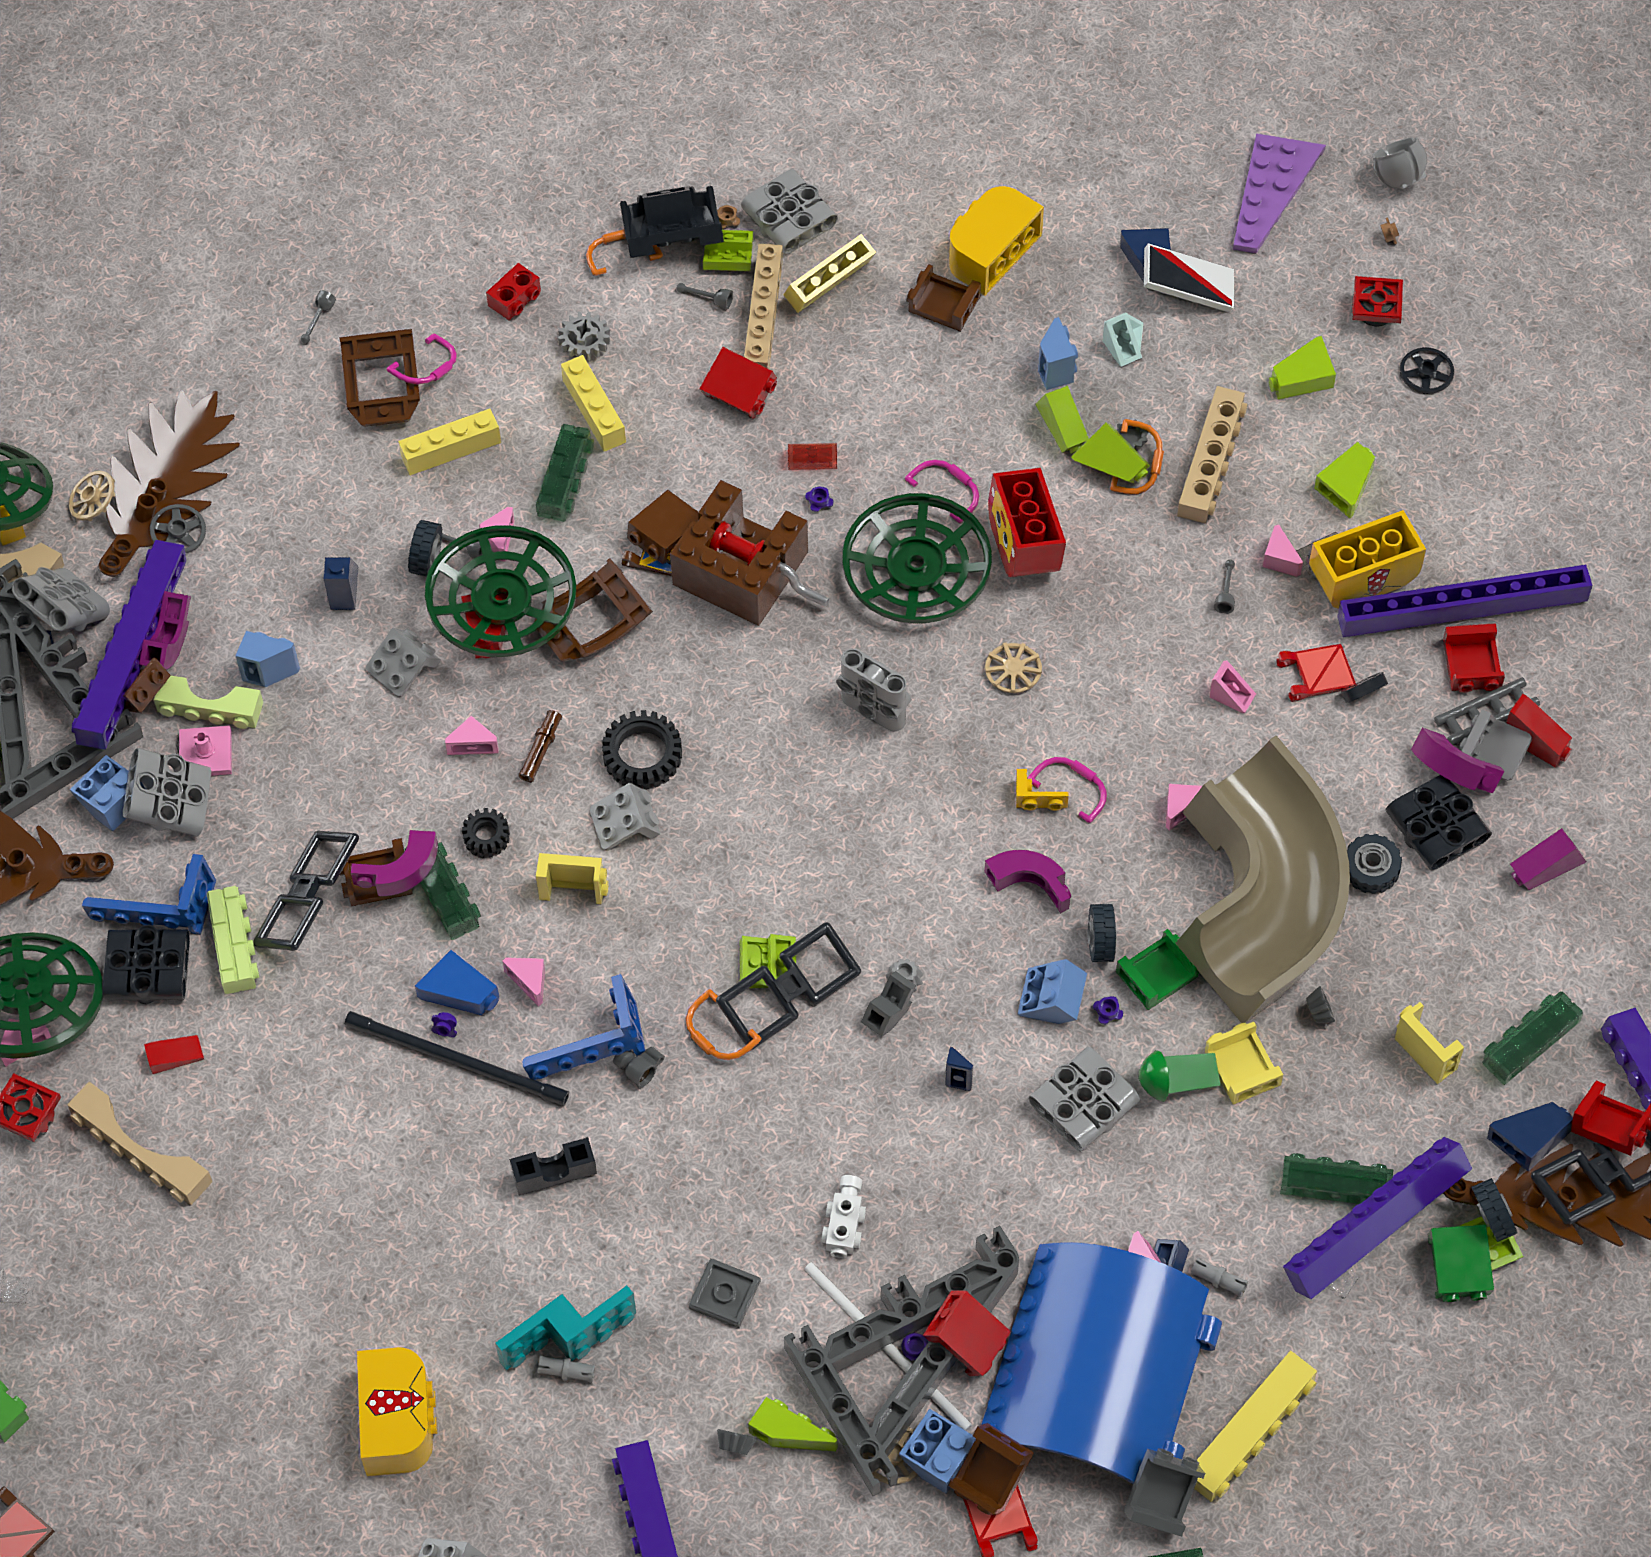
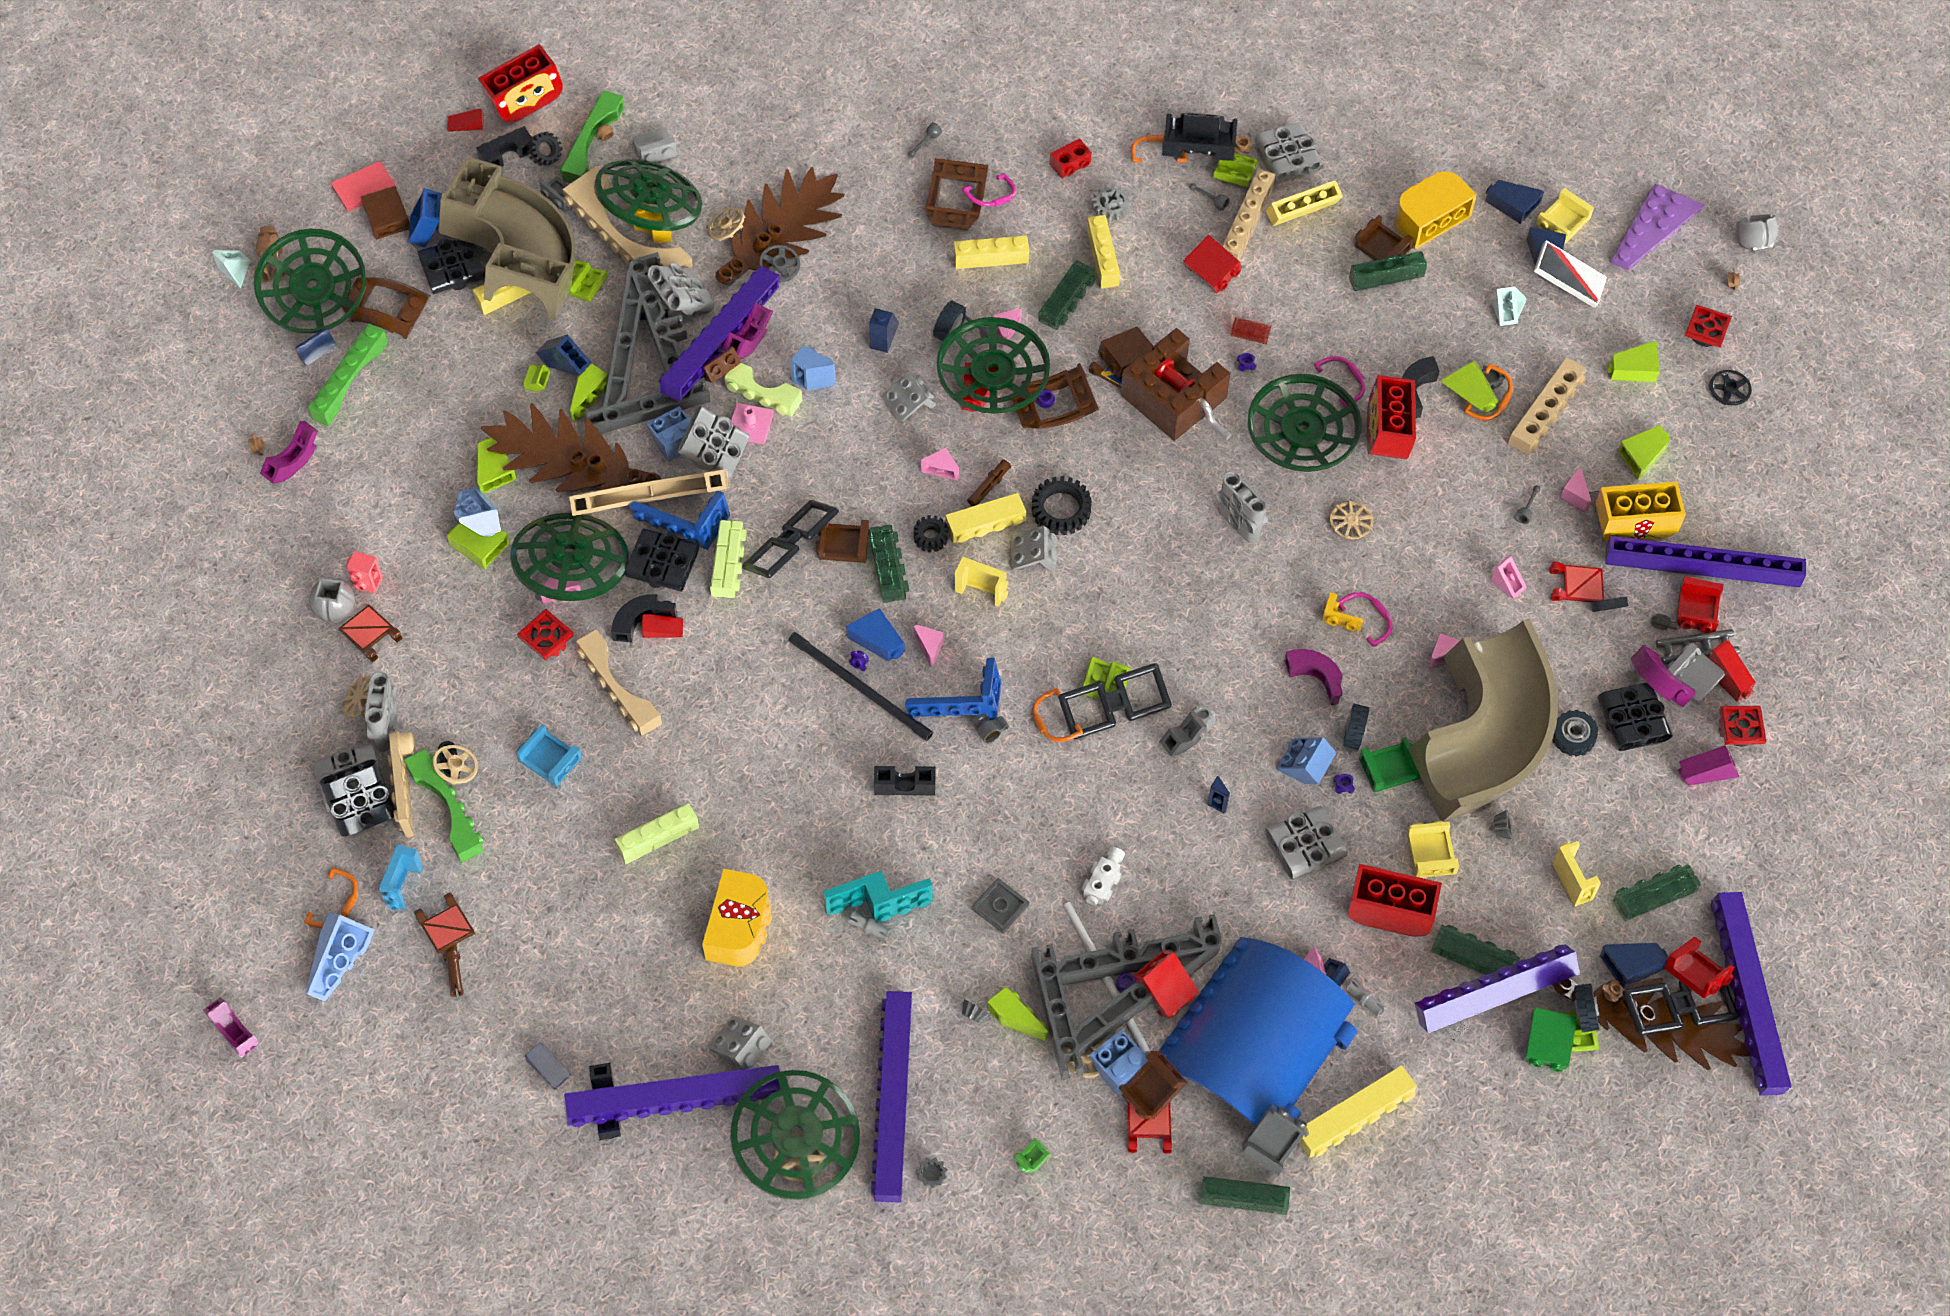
camera: 15 degrees right, 0 degrees up
(76, 1267) = (548, 756): none -> dark azure panel
(129, 1046) = (632, 614): none -> black arch
(153, 855) = (649, 491): none -> tan arch
(252, 1328) = (656, 833): none -> yellowish green brick
(404, 872) = (862, 544): magenta arch -> none
(550, 793) = (985, 518): none -> light yellow brick
(580, 616) = (1045, 399): none -> dark purple plate
(961, 333) = (1388, 271): none -> clear green brick
(1043, 453) = (1422, 372): none -> black arch
(1057, 356) = (1453, 305): medium blue slope -> none
(1063, 419) = (1444, 350): lime slope -> none
(1089, 199) = (1514, 199): none -> dark blue slope
(1159, 202) = (1565, 215): none -> light yellow panel
(1177, 1074) = (1380, 843): green piece -> none
(1218, 1144) = (1394, 901): none -> red brick
(1436, 692) = (1663, 622): none -> clear smoke cylinder
(1518, 1178) = (1613, 991): none -> medium nougat plate
(1573, 798) = (1743, 727): none -> red piece

